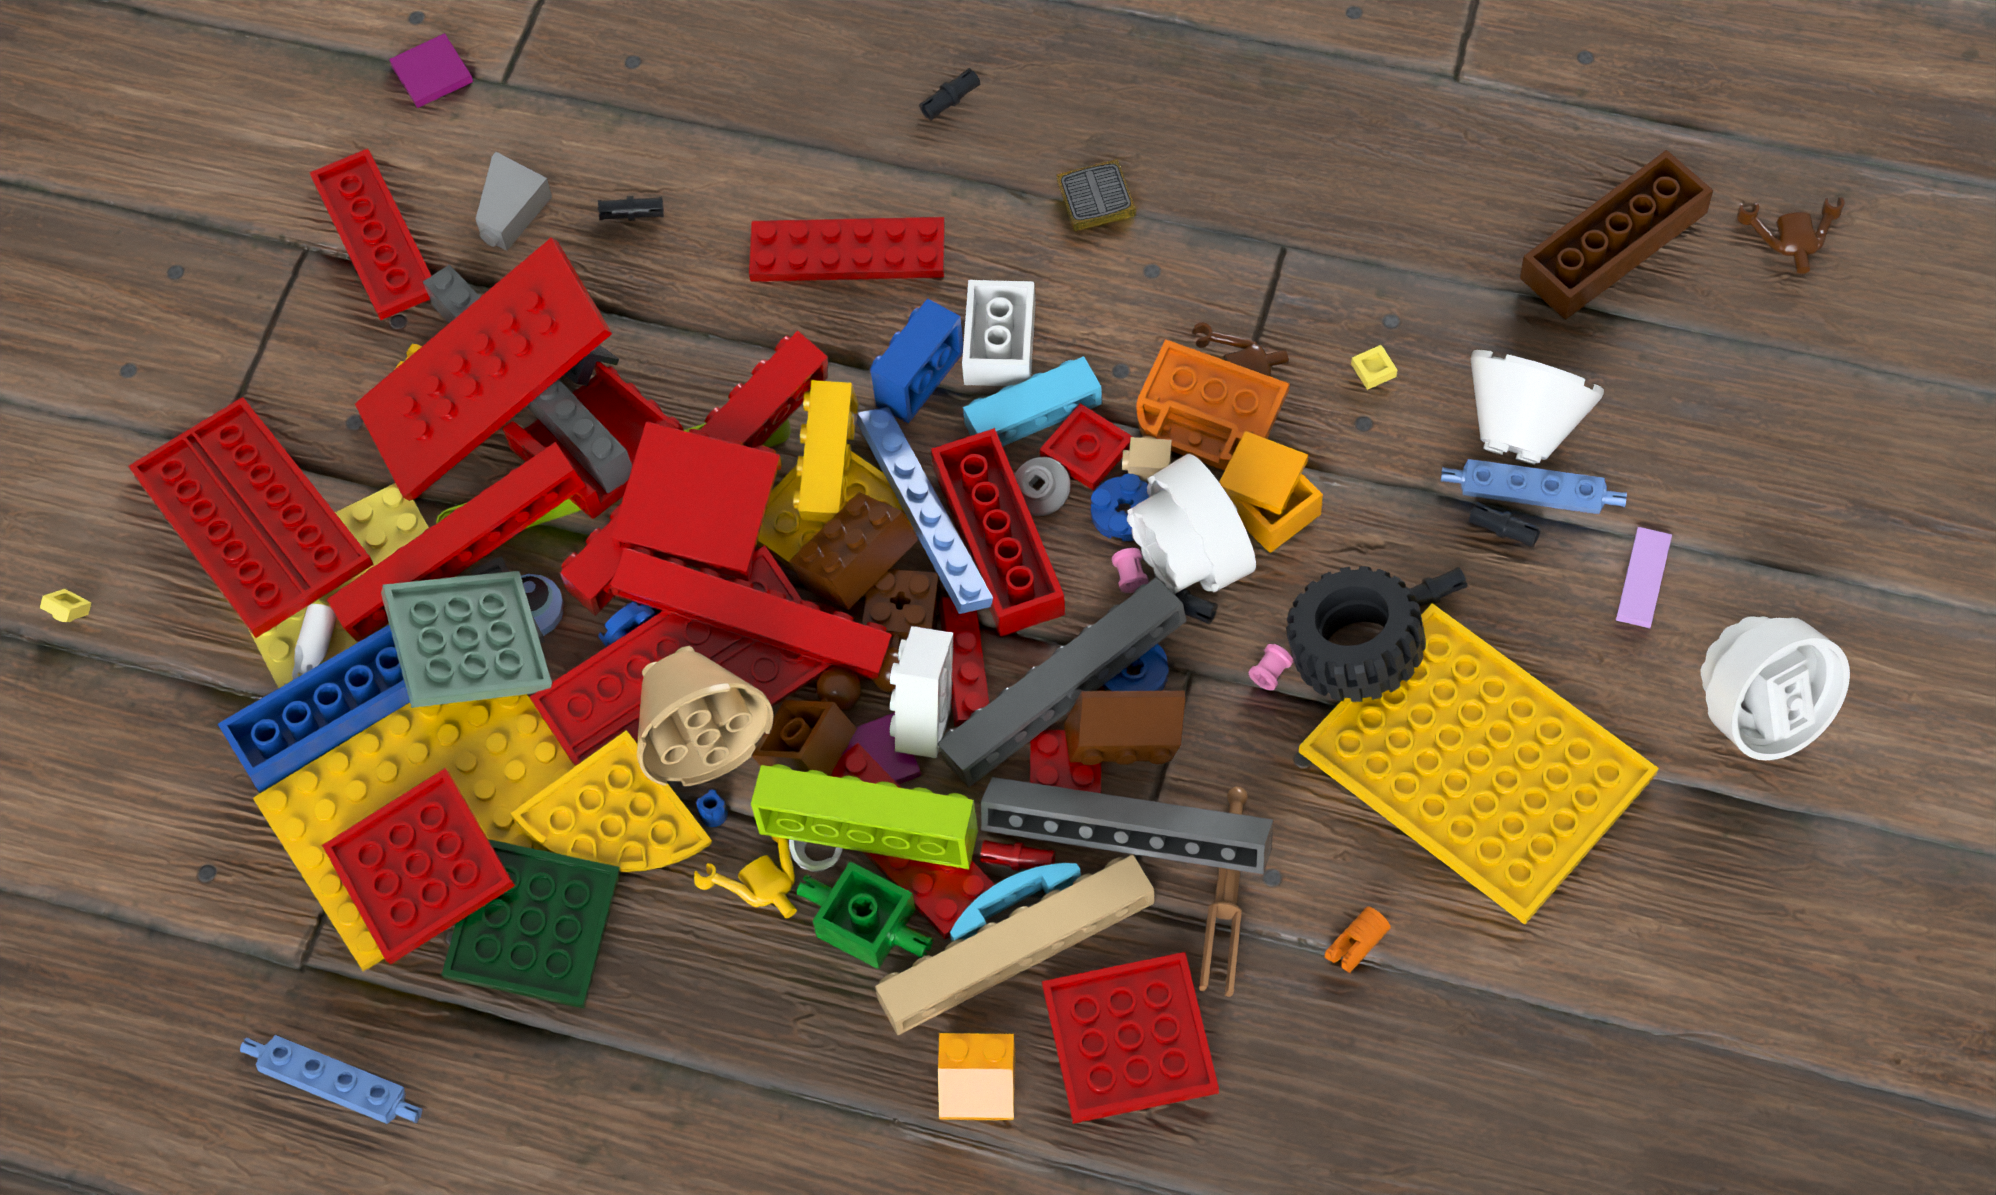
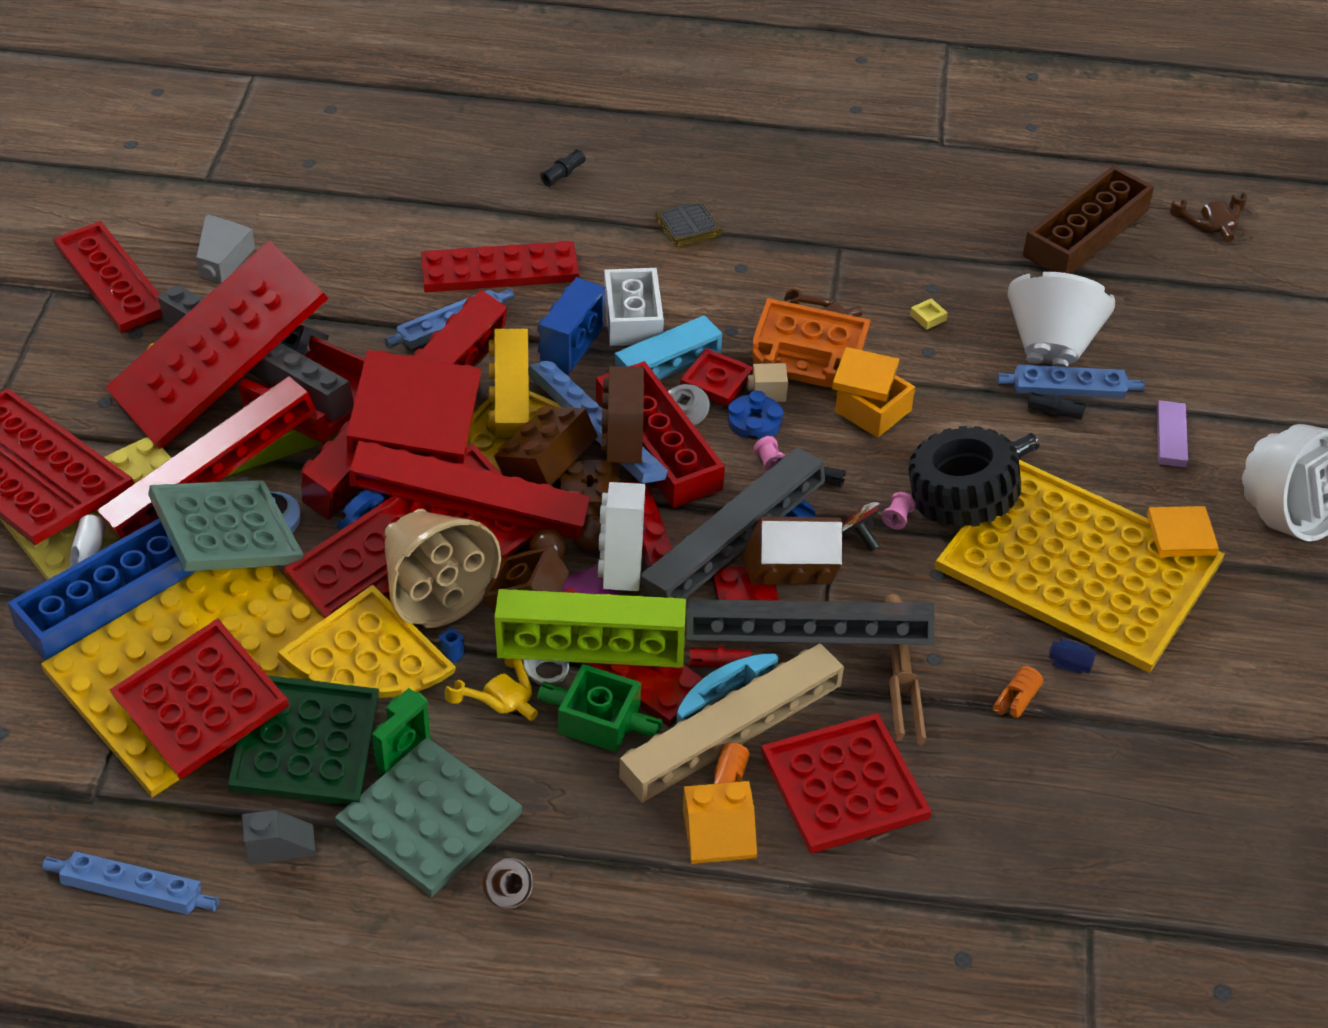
camera: 15 degrees left, 15 degrees down
(431, 70) = (146, 174): magenta tile -> none
(489, 1042) = (276, 837): none -> dark grey slope
(630, 208) = (321, 248): black pin -> none
(643, 925) = (404, 729): none -> green plate
(659, 1029) = (429, 816): none -> sand green plate
(730, 1127) = (507, 882): none -> plate
(766, 332) = (420, 329): none -> medium blue plate
(946, 525) = (623, 414): none -> reddish brown brick
(1001, 1006) = (731, 763): none -> orange hinge
(1191, 529) = (822, 408): white piece -> none
(1219, 682) = (863, 524): none -> shield
(1434, 894) = (1072, 656): none -> clear blue brick
(1612, 733) = (1182, 531): none -> light orange tile

